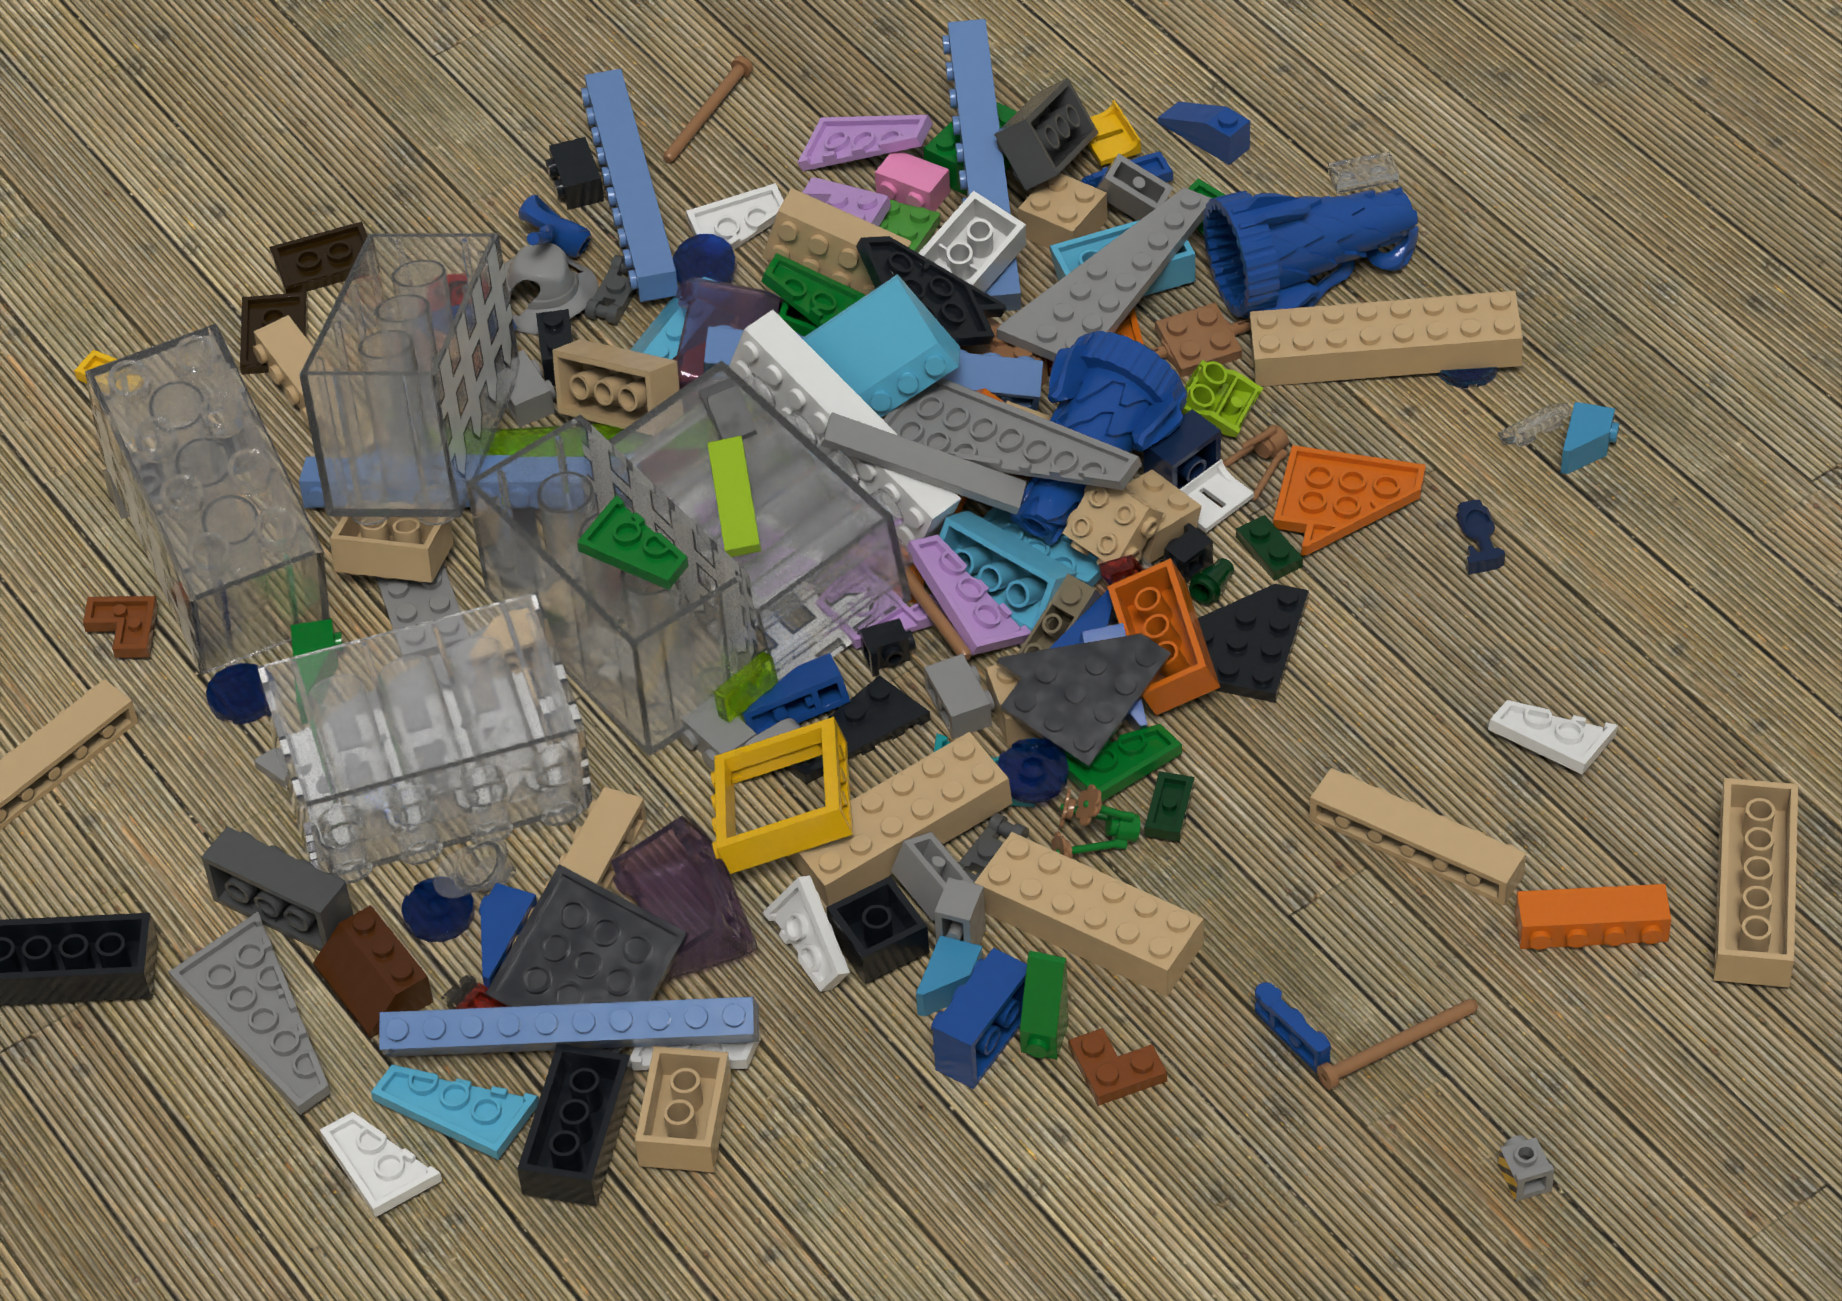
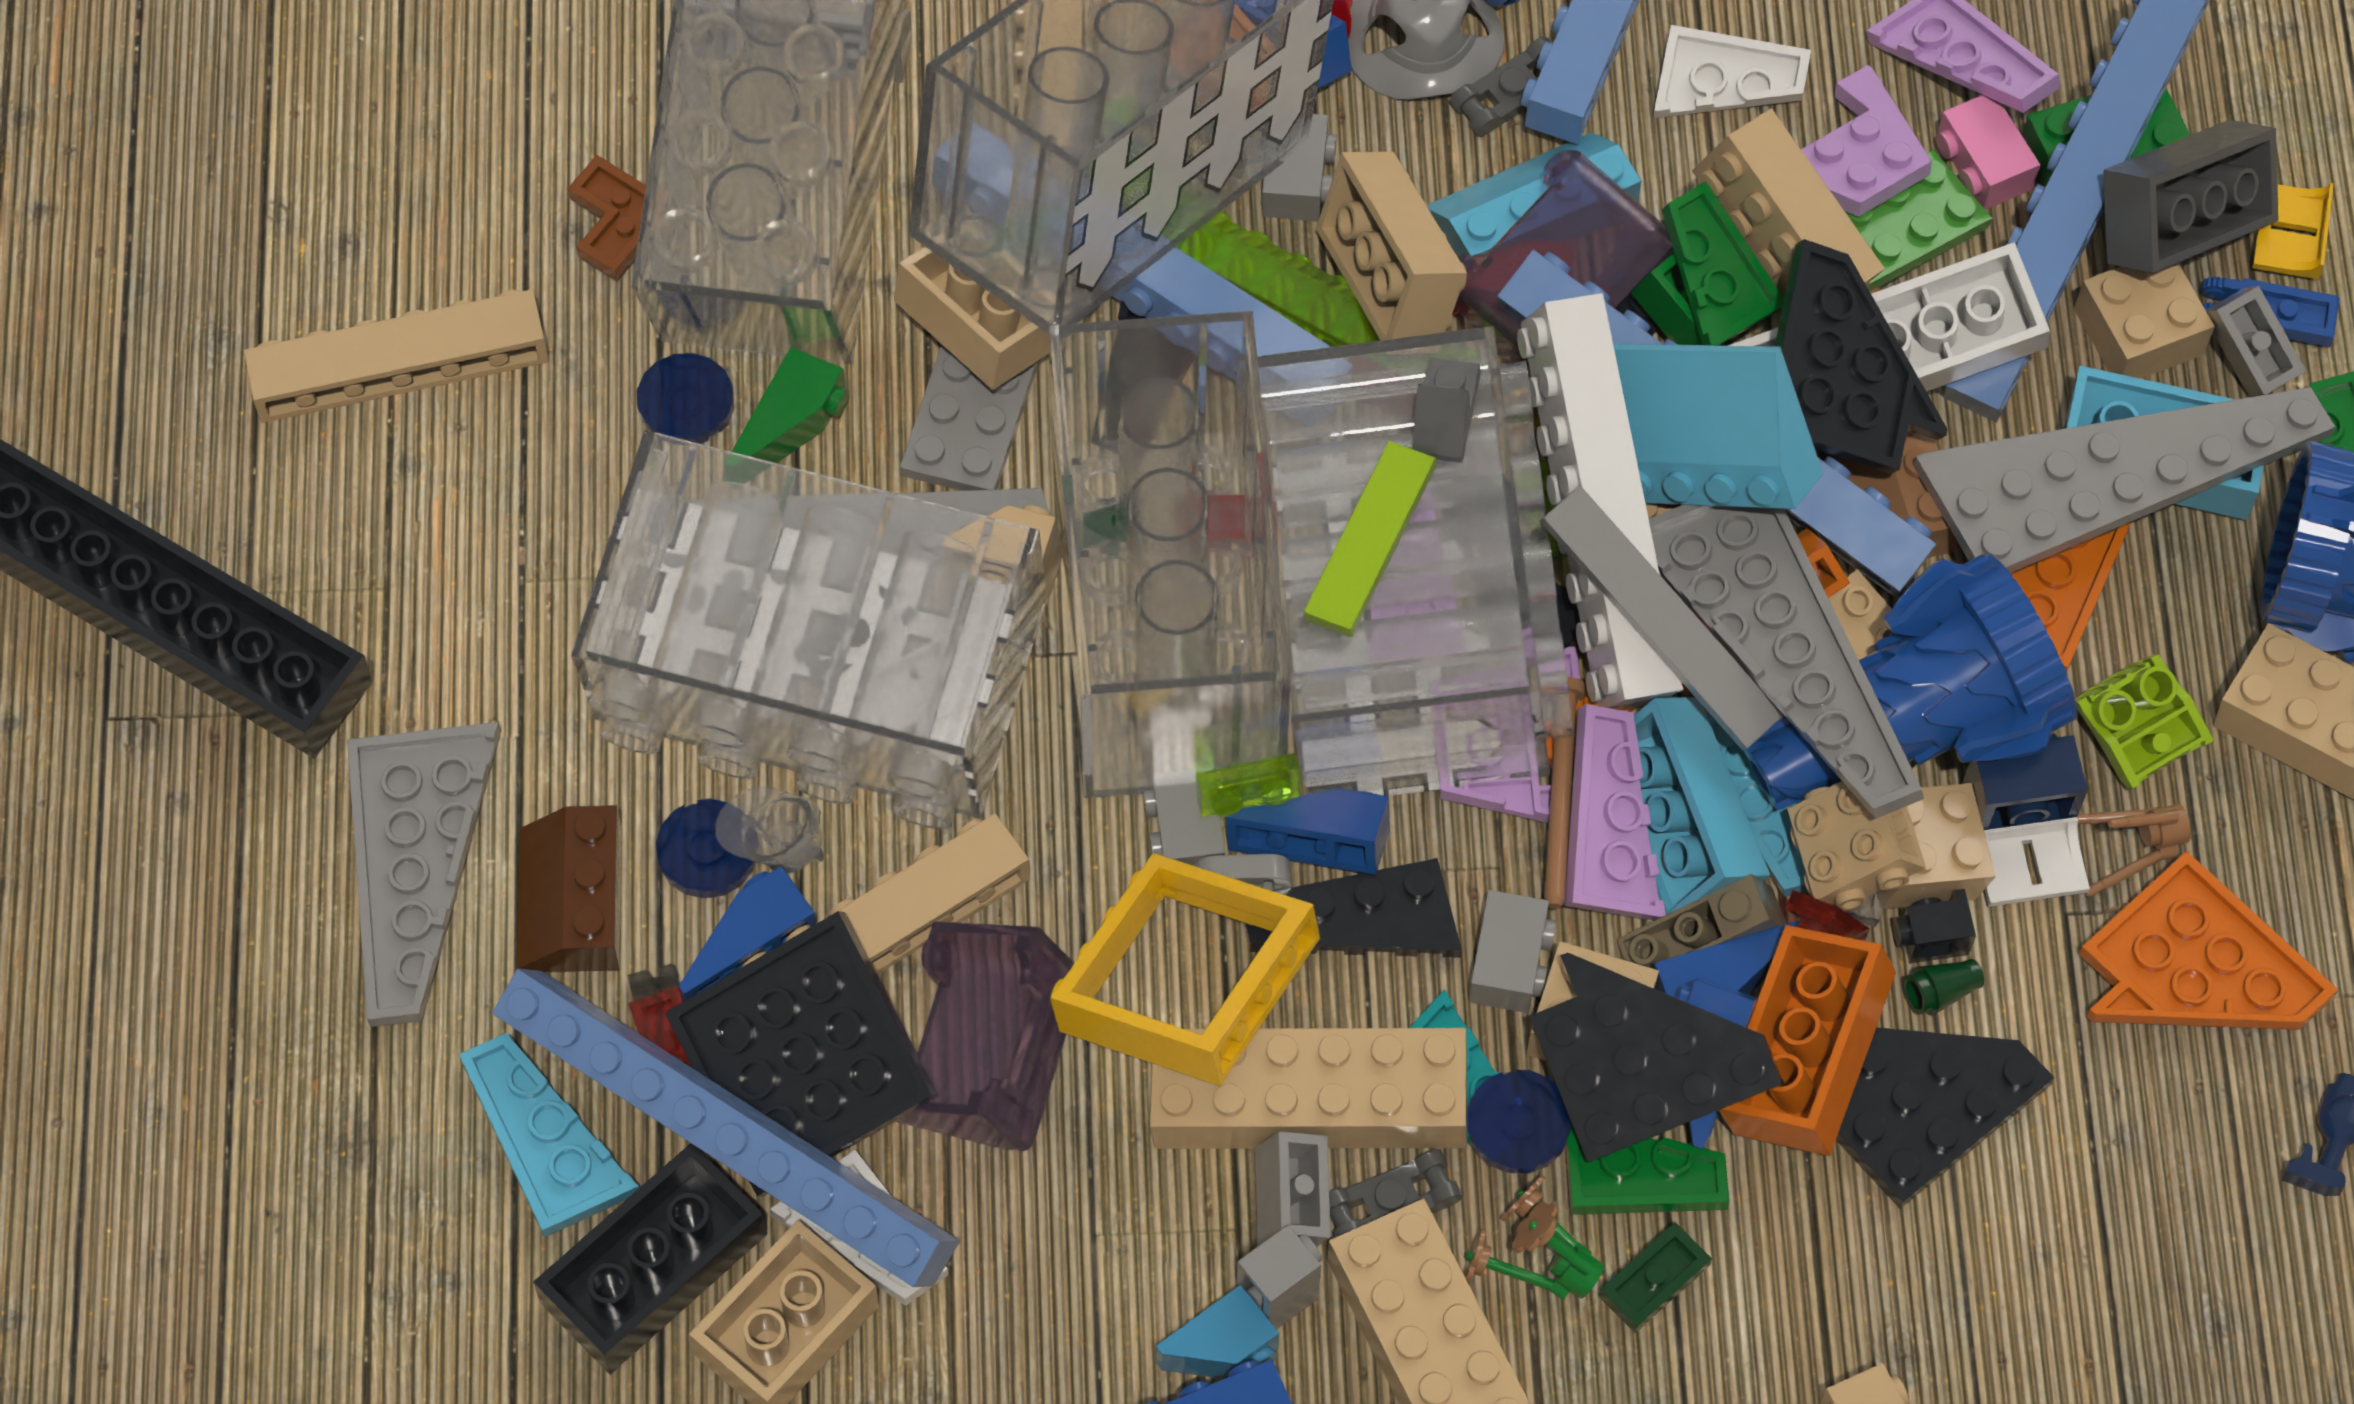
camera: 30 degrees right, 15 degrees up
(284, 890) = (533, 709): dark grey brick -> none
(375, 1165) = (403, 1153): white wing -> none
(553, 332) = (1381, 119): black brick -> none
(630, 545) = (1173, 551): green wing -> none
(705, 256) = (1643, 116): clear blue tile -> none
(809, 931) = (1098, 1161): white wing -> none
(878, 929) = (1176, 1224): black brick -> none
(886, 645) = (1474, 822): black brick -> none
(1199, 336) = (2185, 612): medium nougat plate -> none
(1269, 547) = (2053, 980): dark green plate -> none

